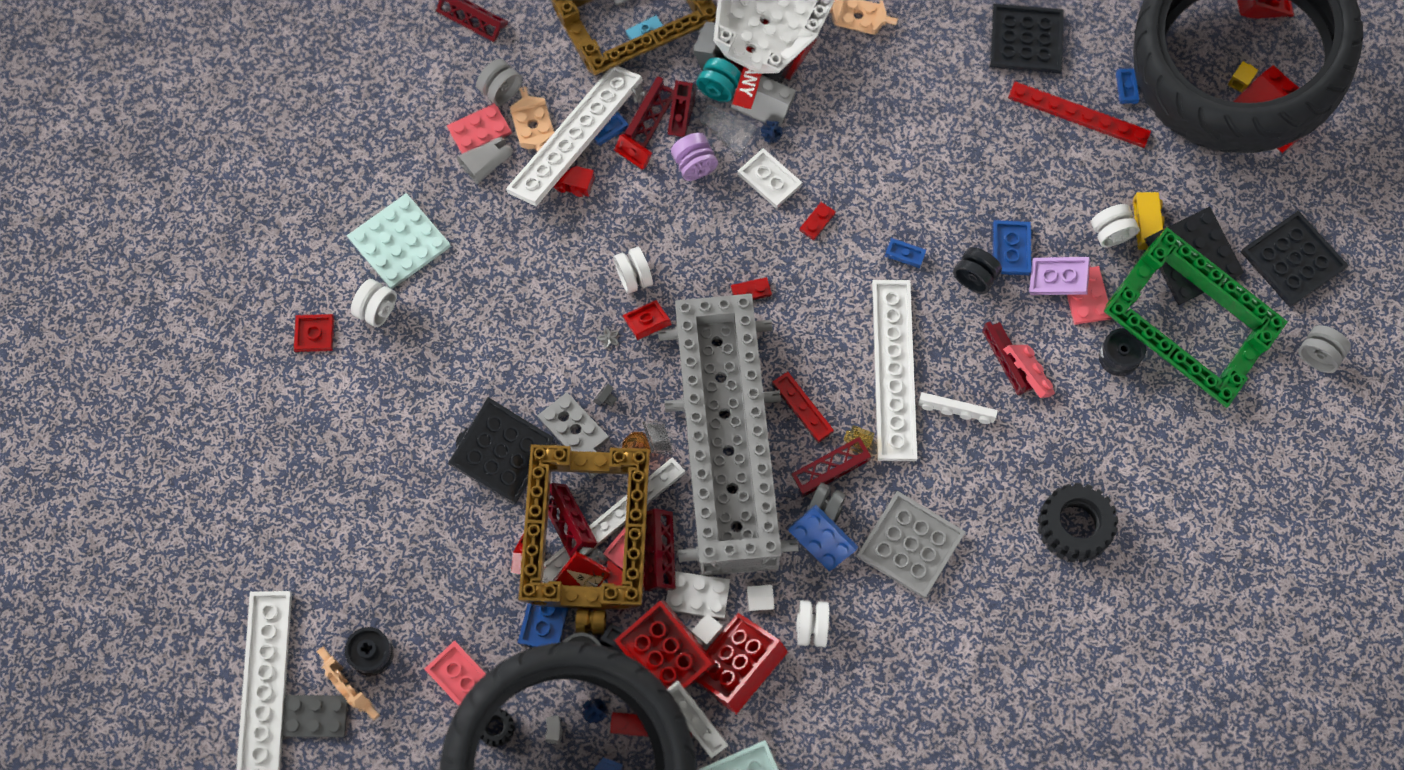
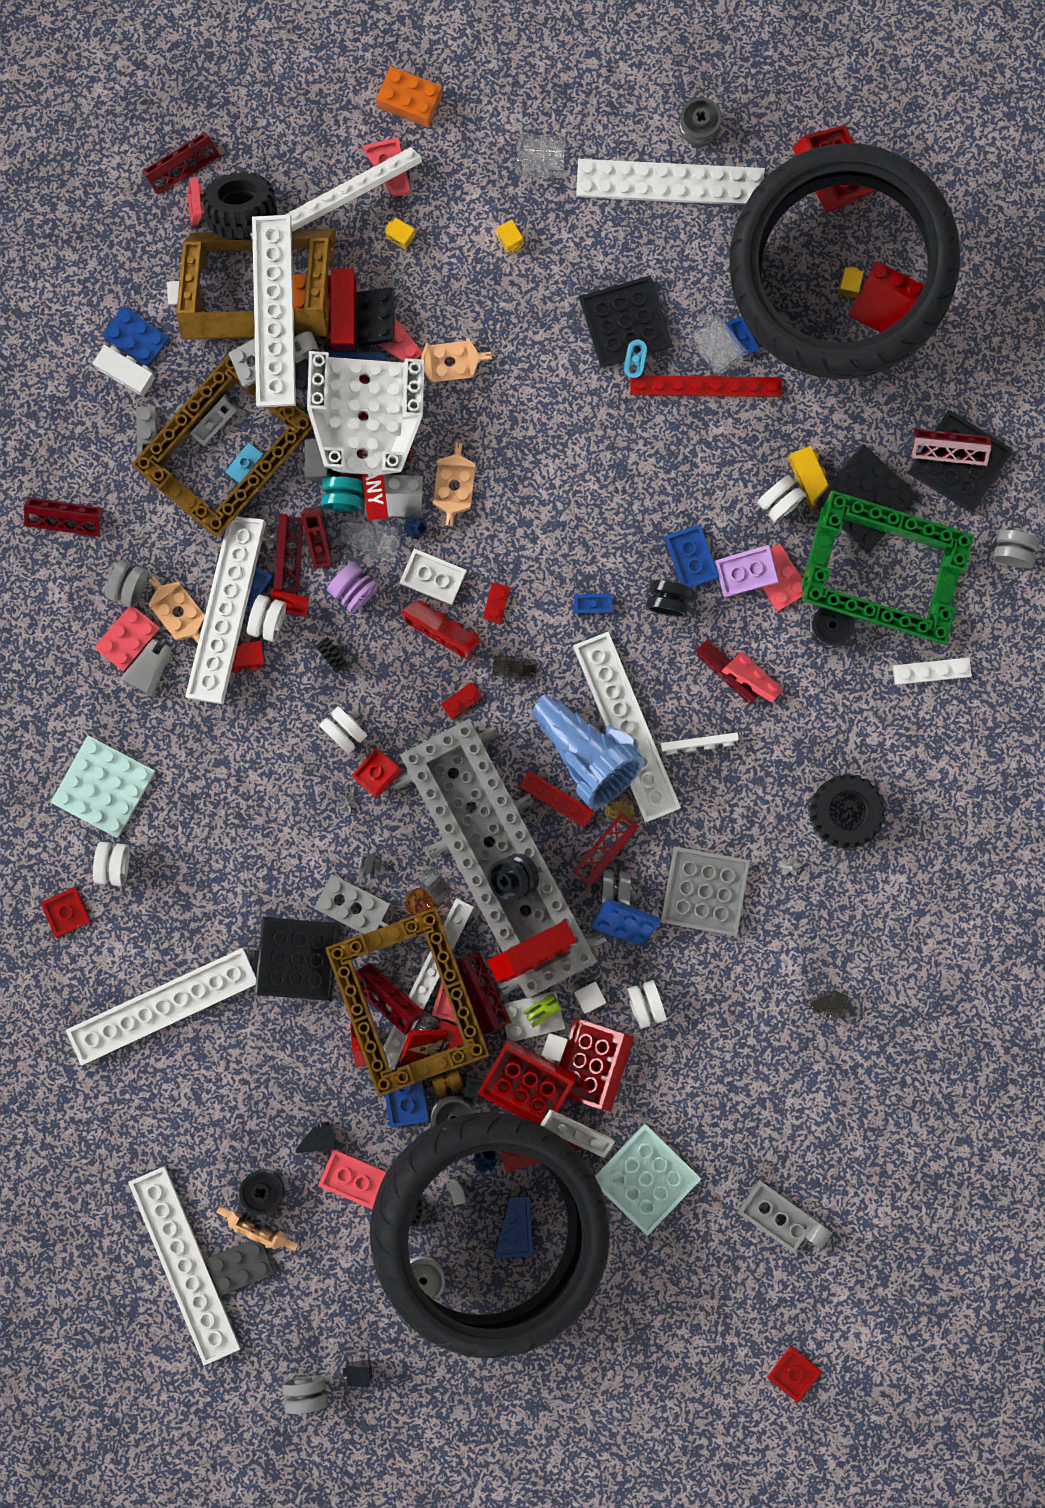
camera: 20 degrees left, 15 degrees up
(358, 447) = (162, 1006): none -> white plate
(444, 625) = (319, 1139): none -> black slope
(607, 153) = (266, 618): none -> white wheel
(651, 205) = (331, 655): none -> black tyre
(710, 589) = (549, 1006): none -> lime arm
(722, 515) = (532, 952): none -> red piece
(733, 446) = (513, 877): none -> black wheel
(757, 221) = (440, 629): none -> red slope
(811, 279) = (514, 668): none -> clear smoke slope
(822, 98) = (454, 469): none -> light nougat plate
(859, 385) = (596, 761): none -> medium blue cone
(994, 697) = (832, 1003): none -> clear smoke slope
(1002, 553) = (789, 866): none -> light grey plant
(1023, 67) = (636, 359): none -> medium azure plate
(1103, 83) = (718, 345): none -> clear brick
(1205, 430) = (932, 671): none -> white plate
(1293, 234) = (954, 441): none -> fence

